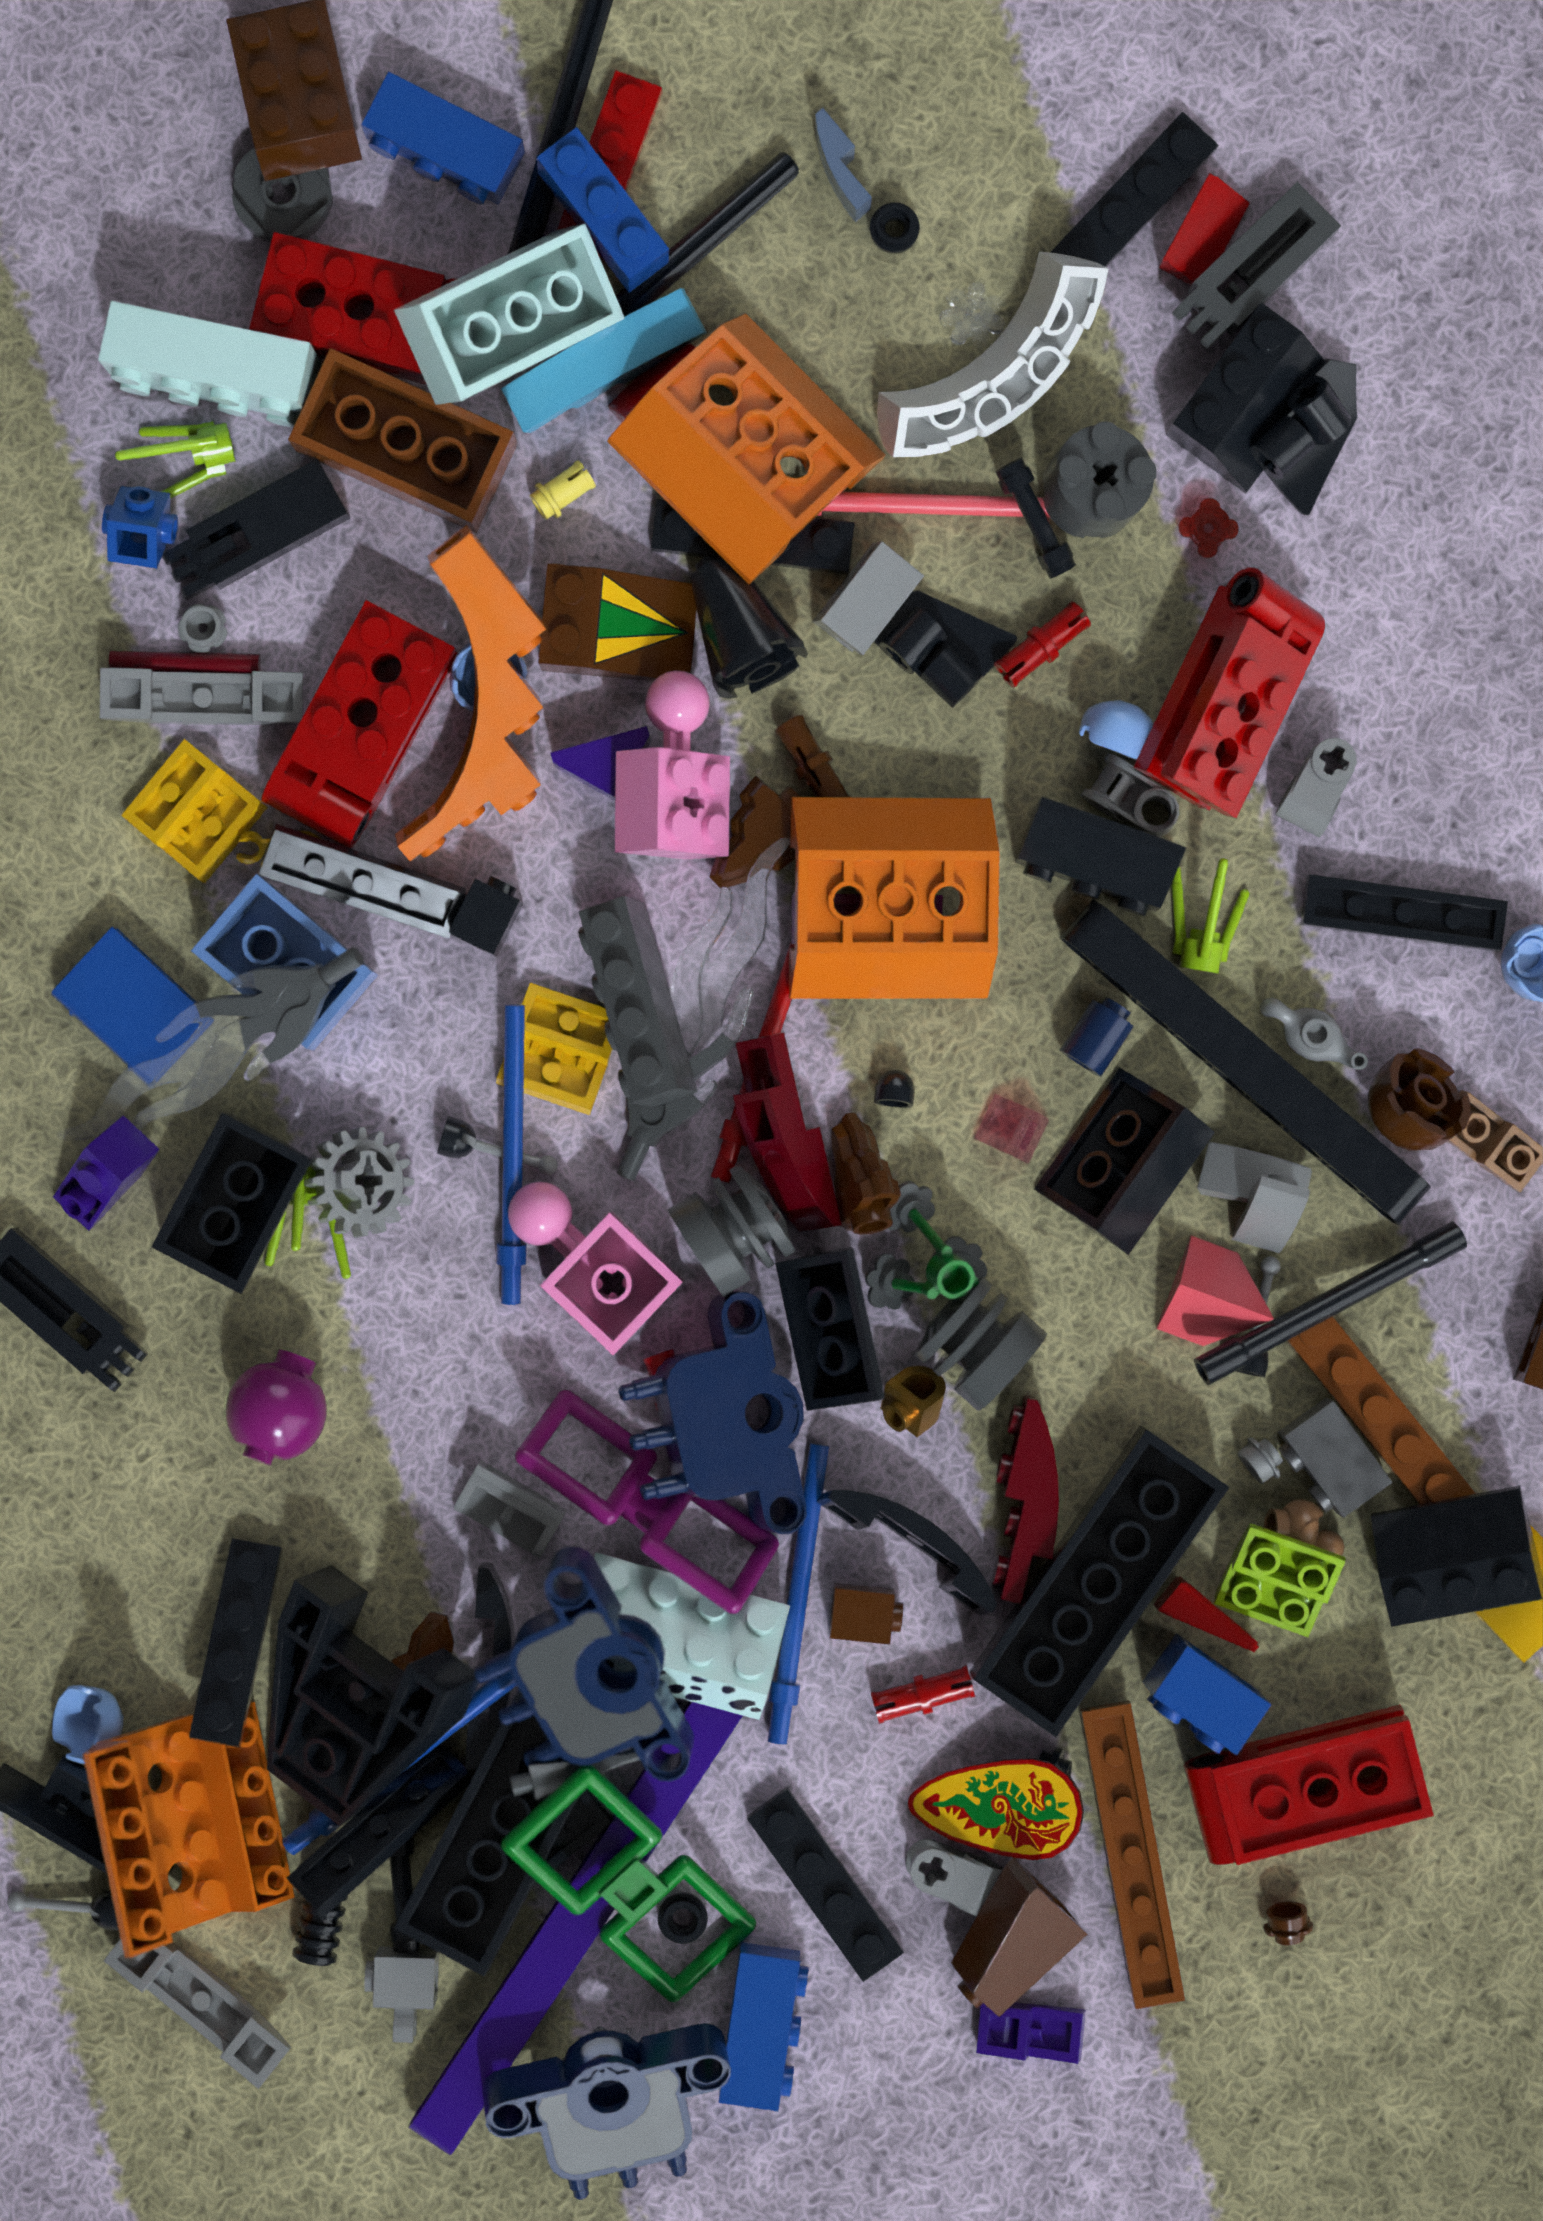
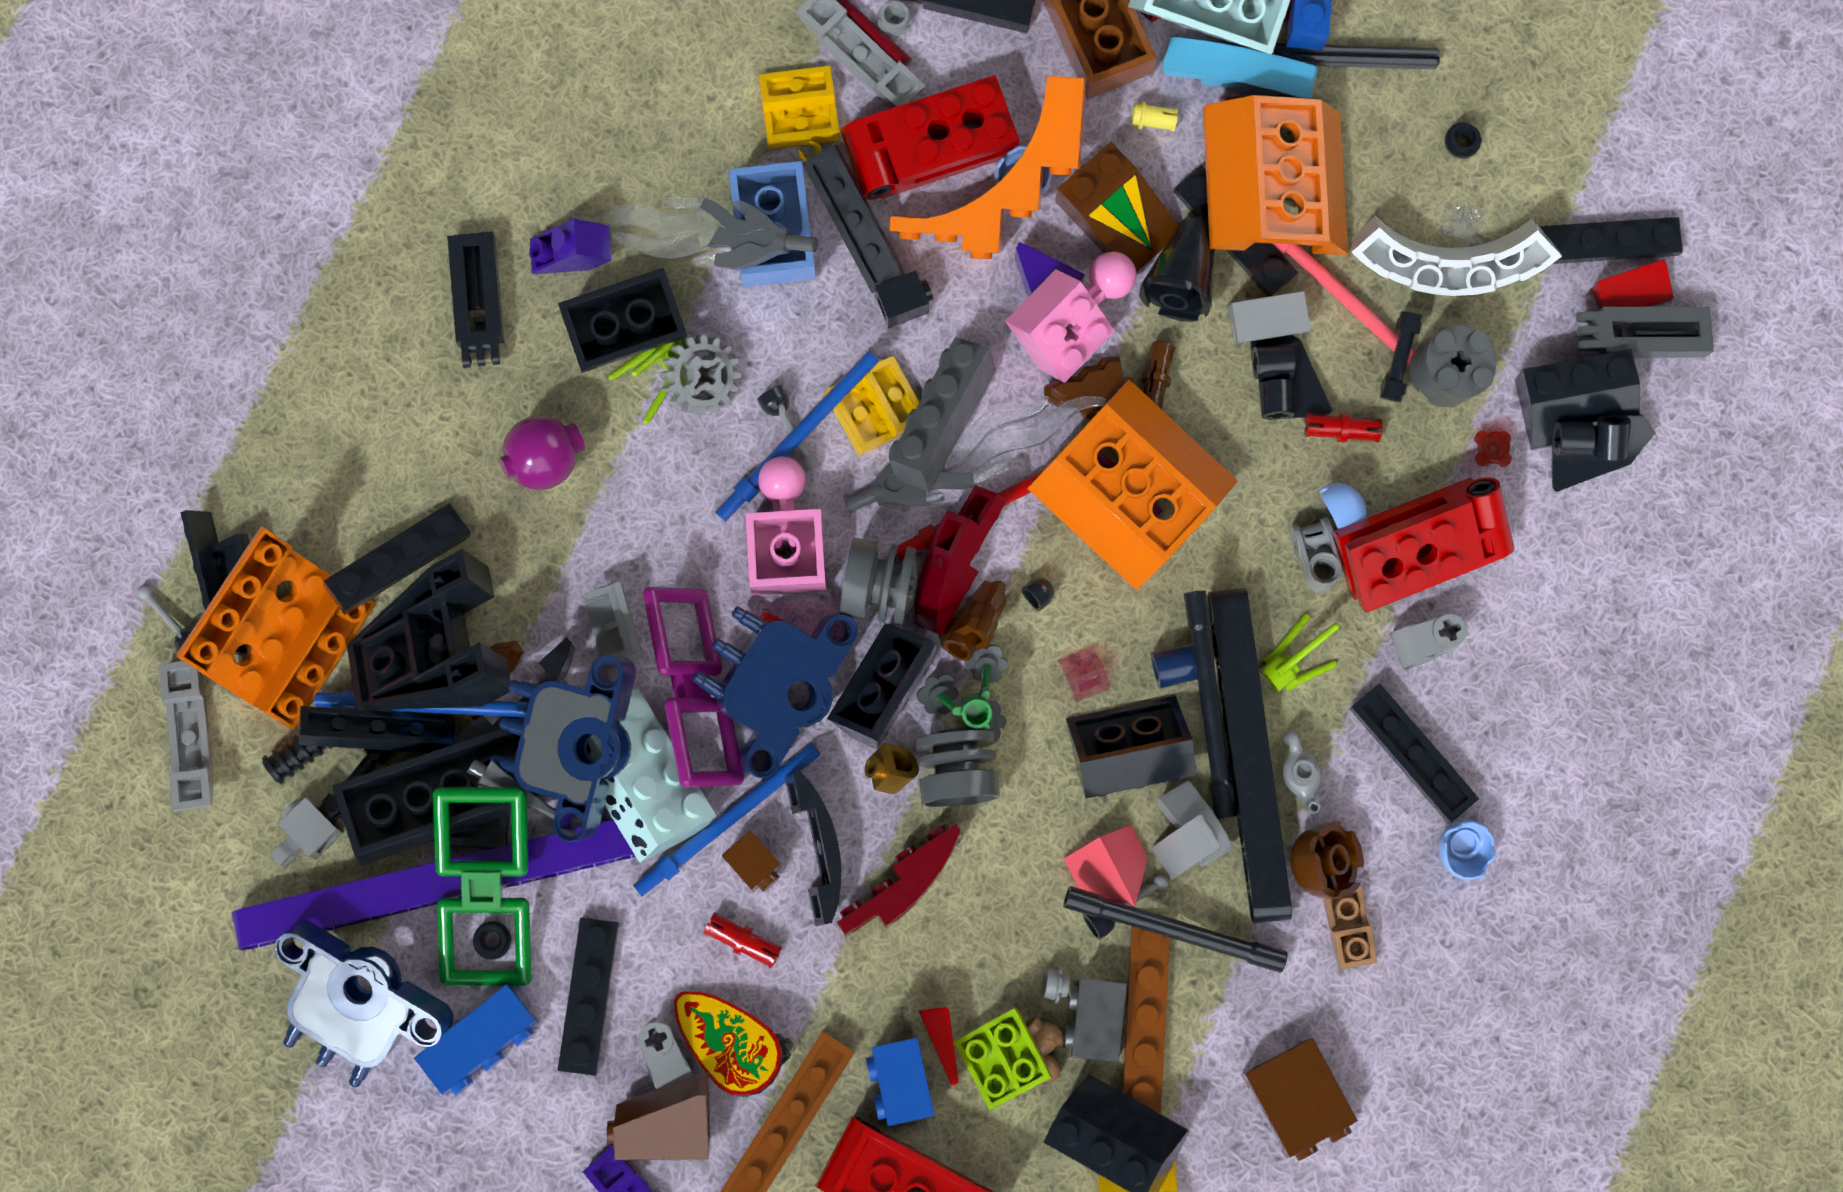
camera: 45 degrees right, 10 degrees down
(84, 1718) = (281, 519): light blue hair -> none
(124, 999) = (667, 166): blue piece -> none
(835, 154) = (1465, 76): sand blue slope -> none
(1087, 985) = (1221, 784): none -> black piece
(1098, 1581) = (901, 963): black brick -> none
(1099, 856) = (1270, 564): black slope -> none

